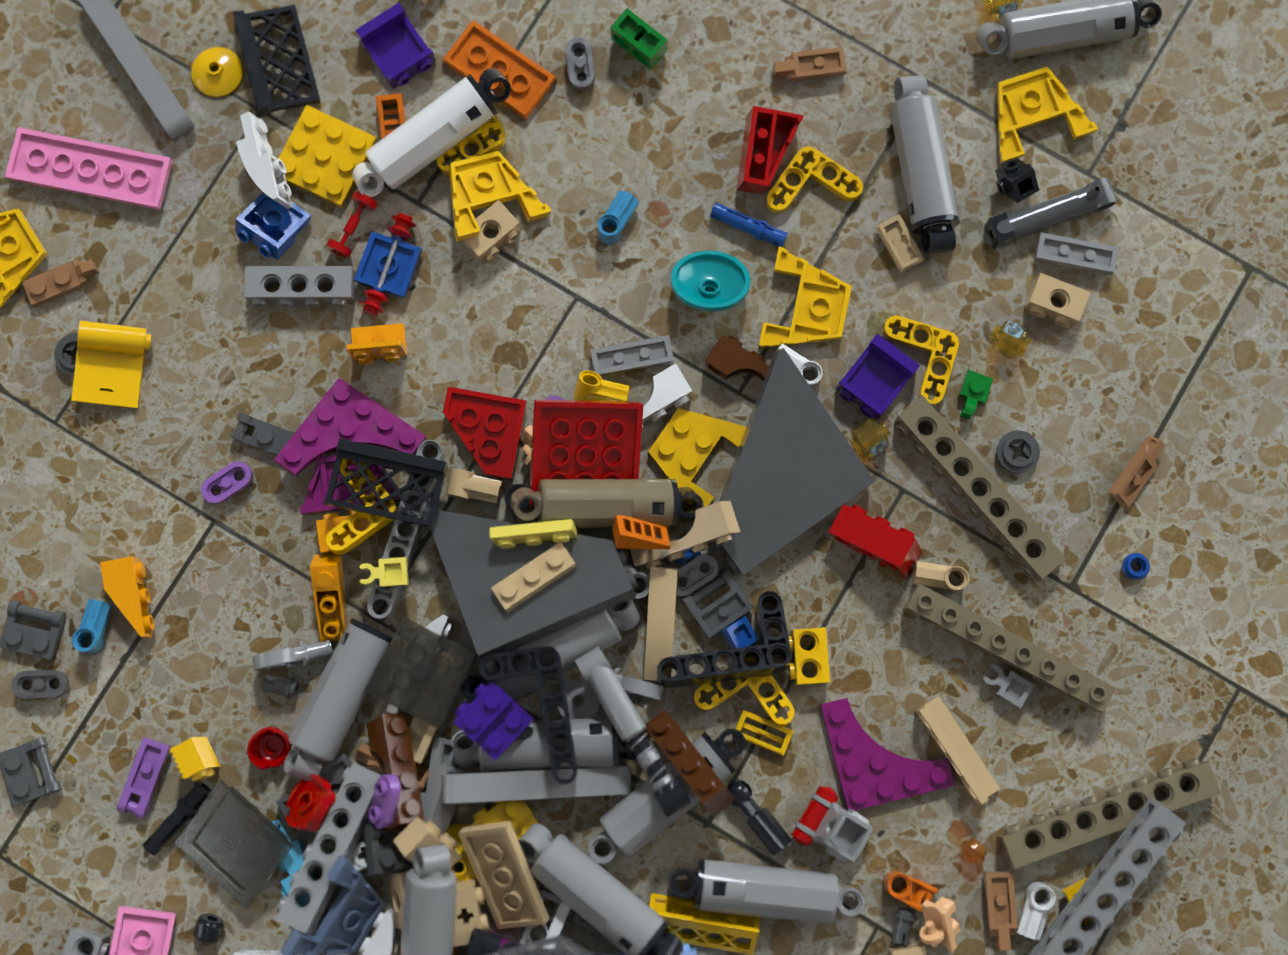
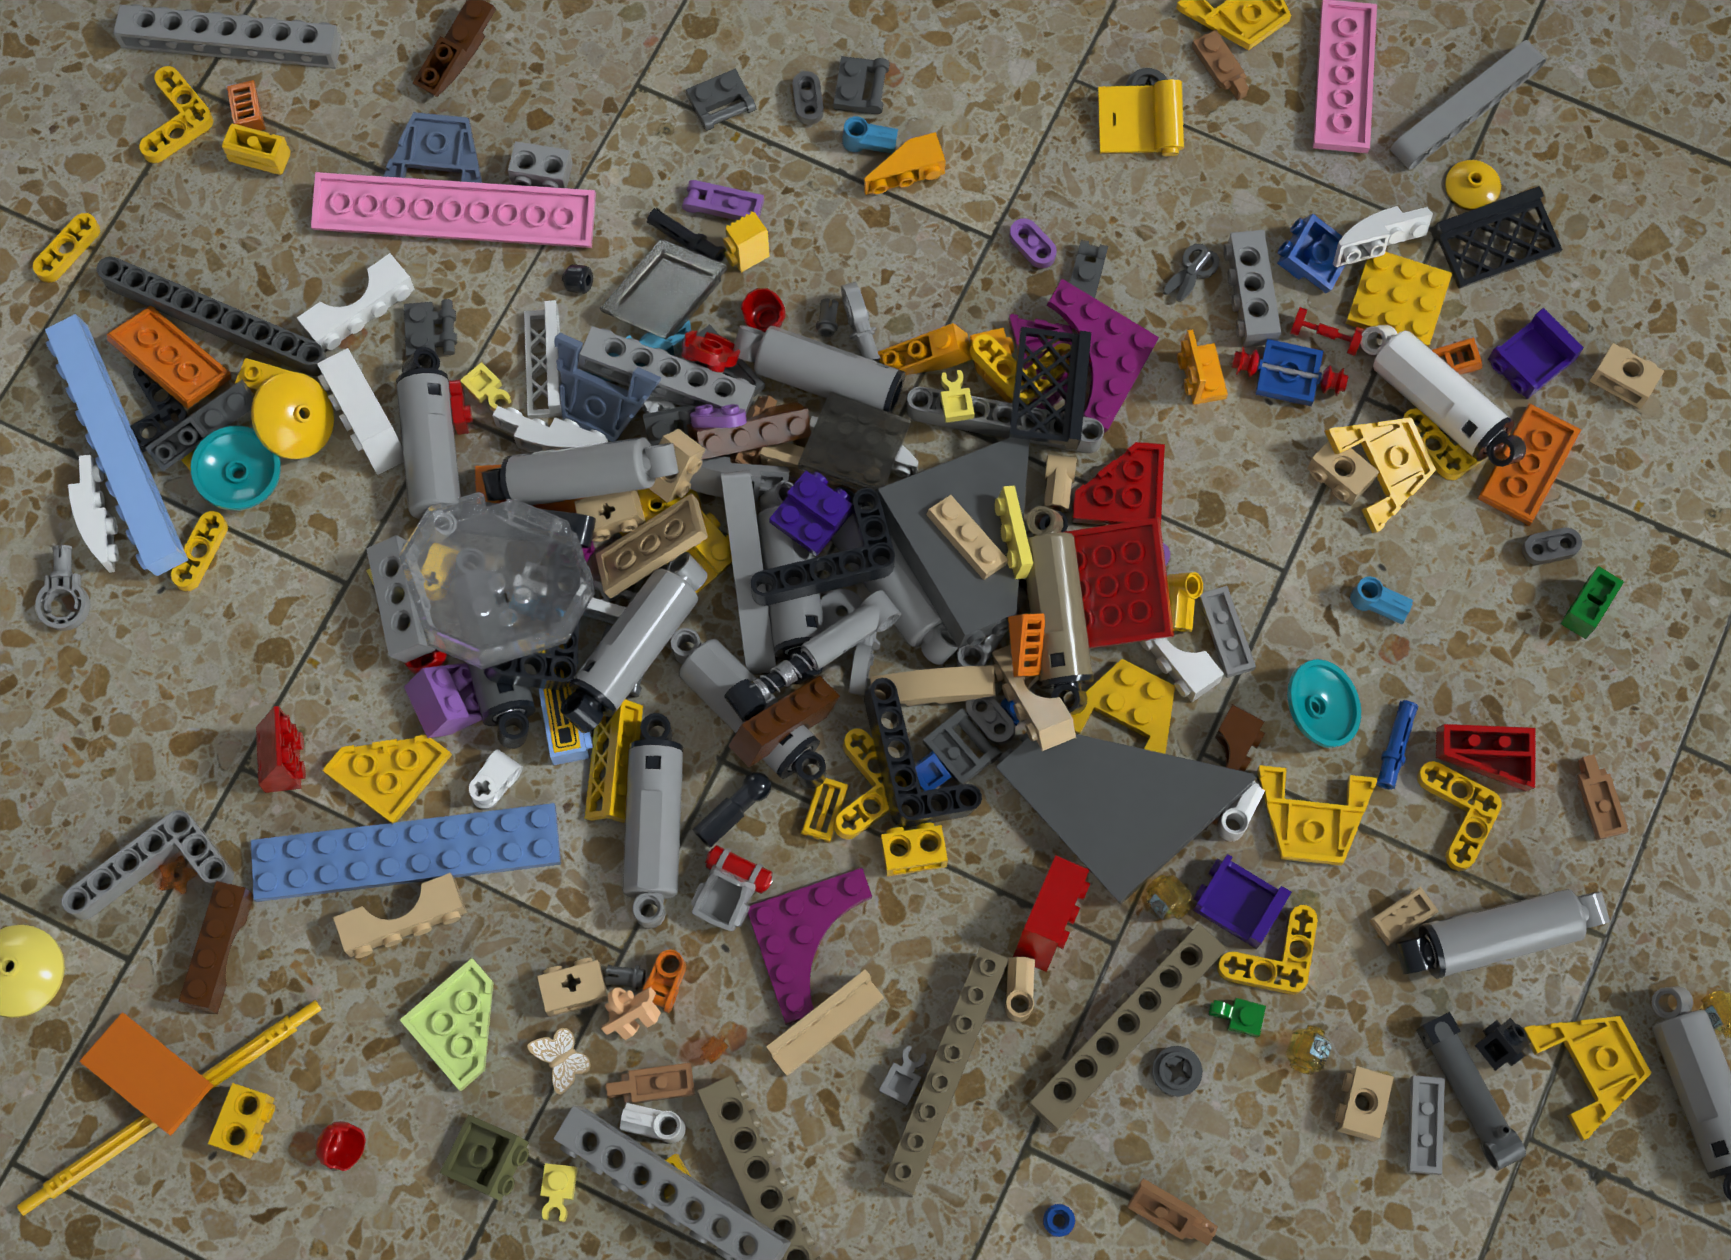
camera: 85 degrees right, 10 degrees down
(279, 342) = (1192, 271): none -> dark grey piece

